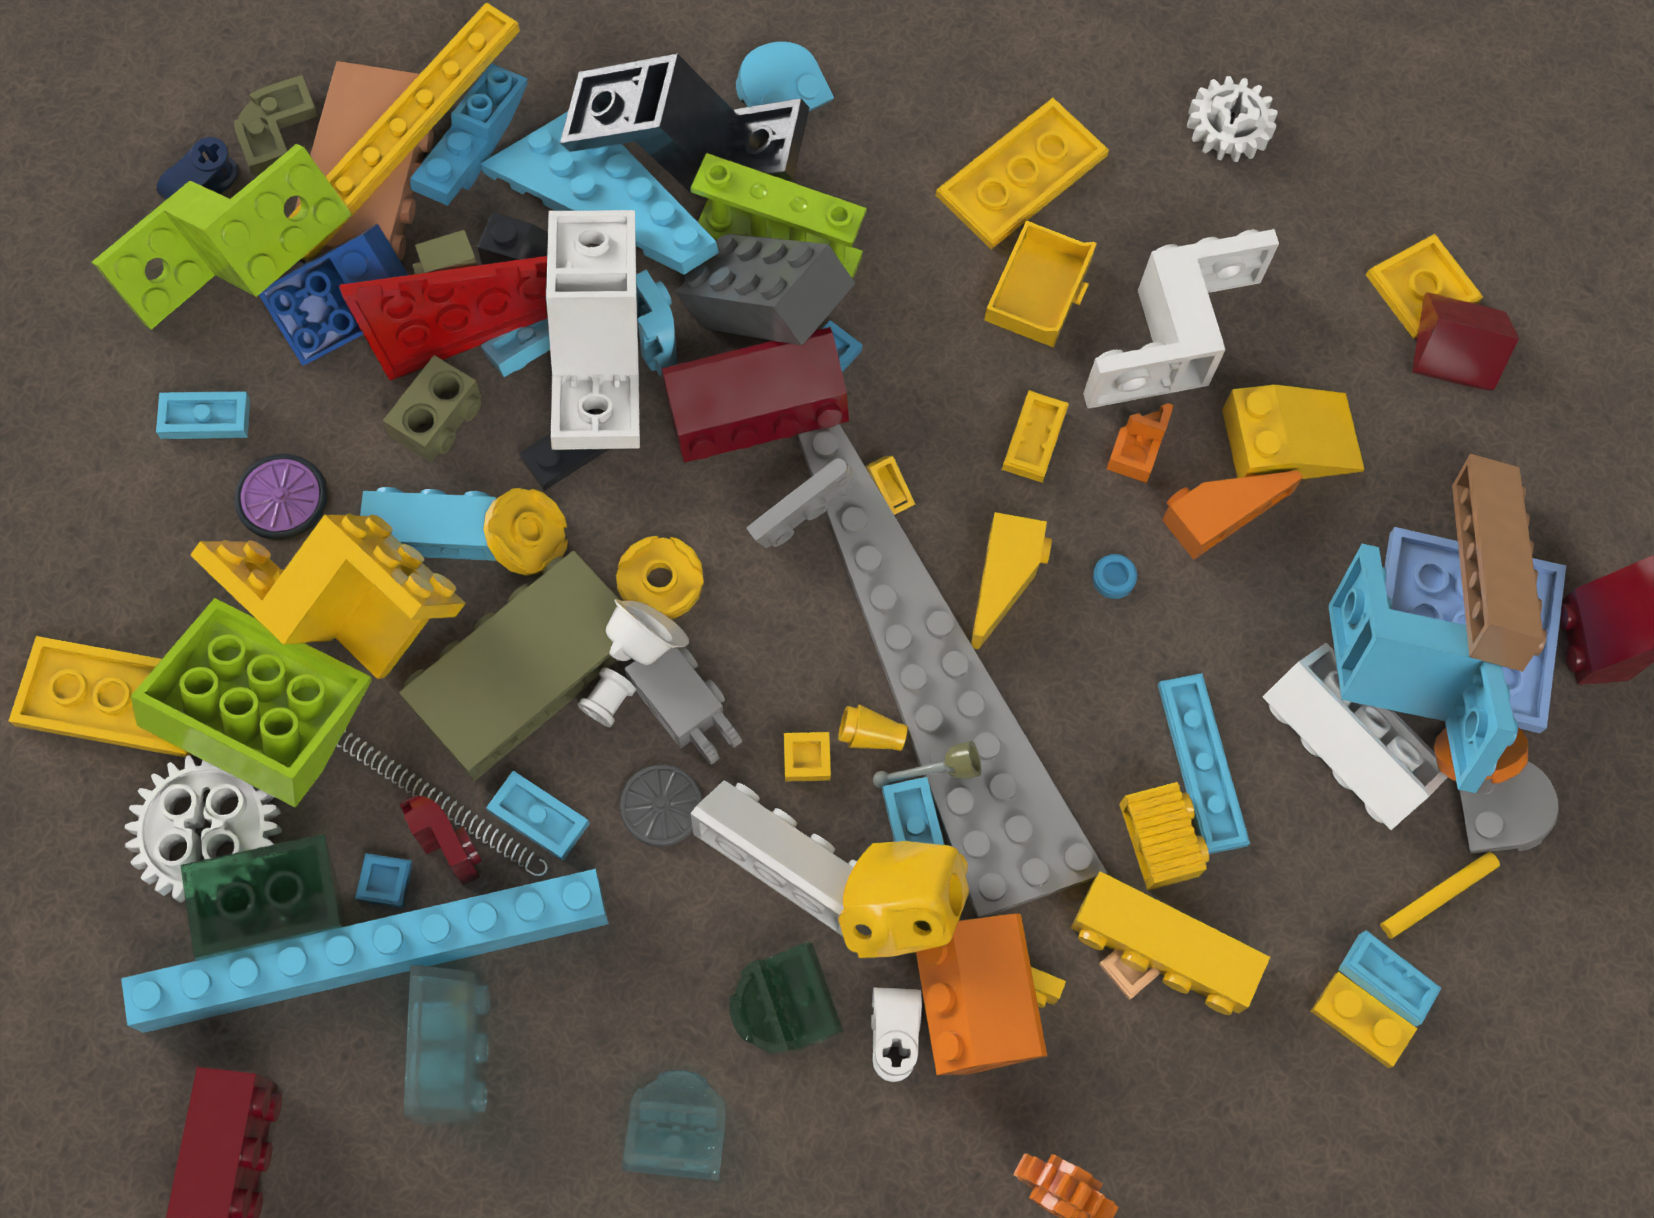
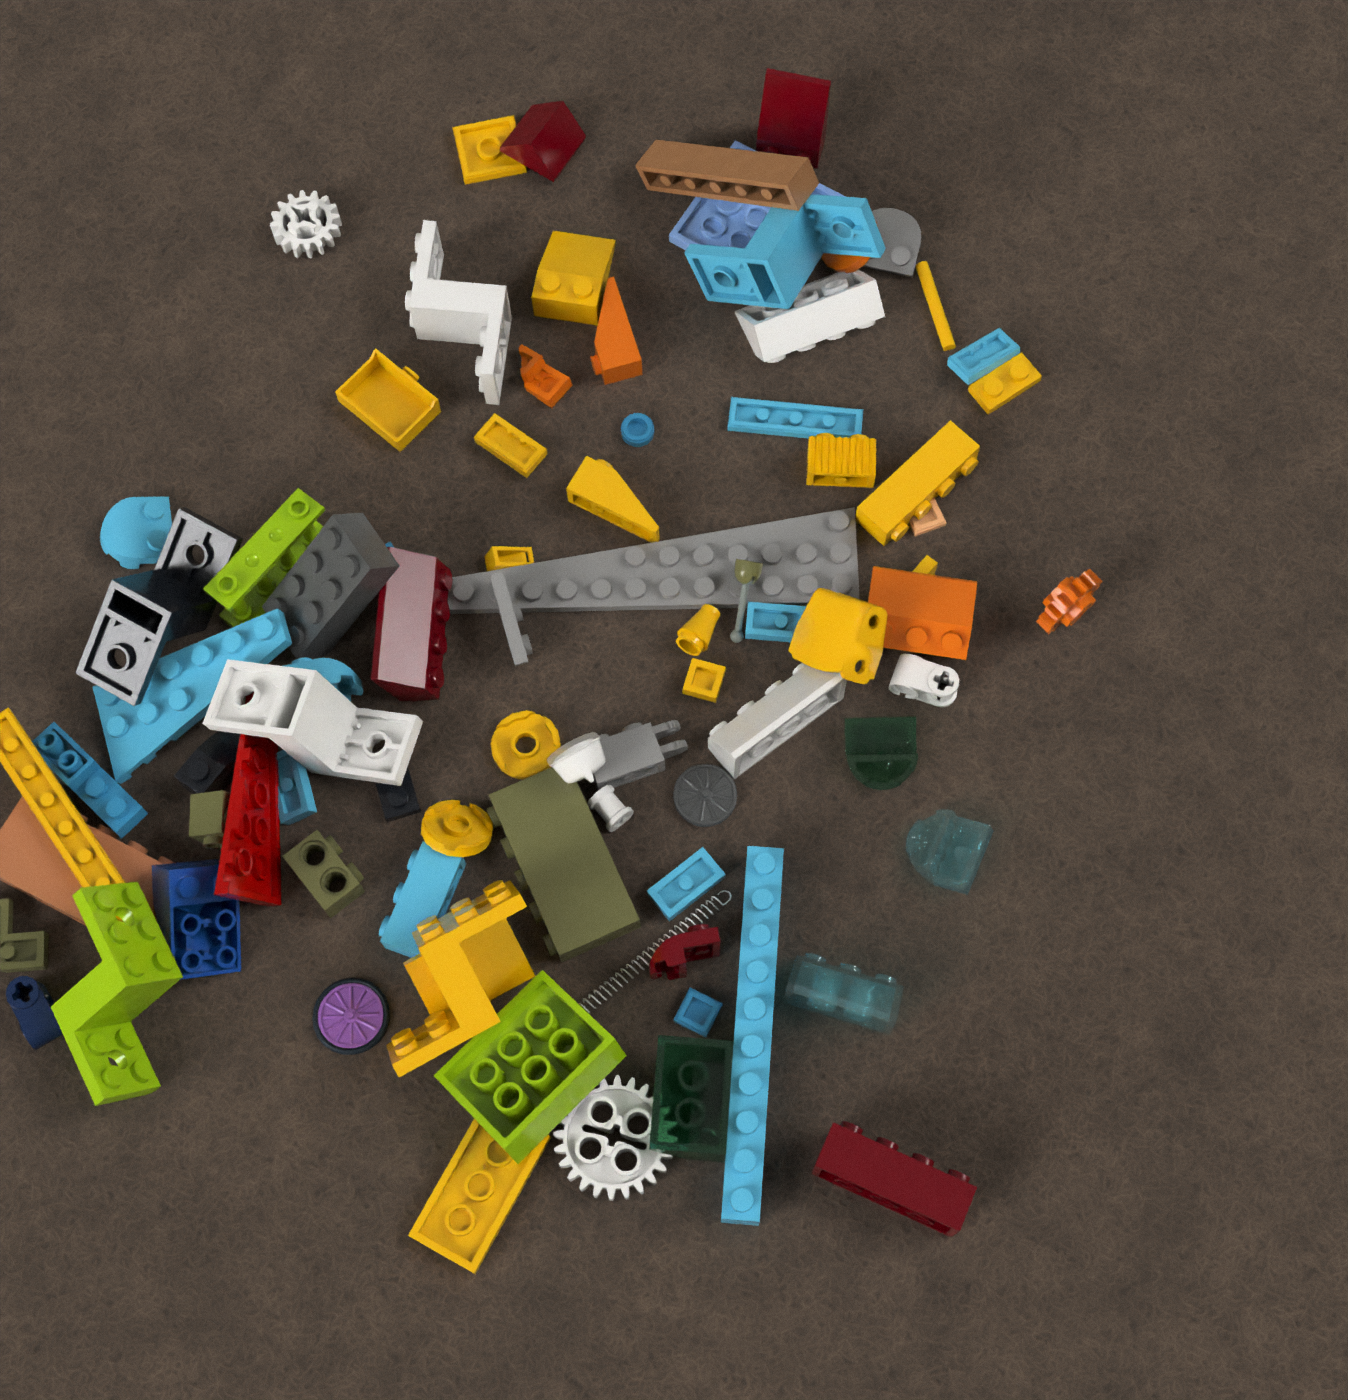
camera: 65 degrees left, 0 degrees up
(203, 415) = (258, 1058): medium azure plate -> none
(1021, 173) = (288, 384): yellow tile -> none

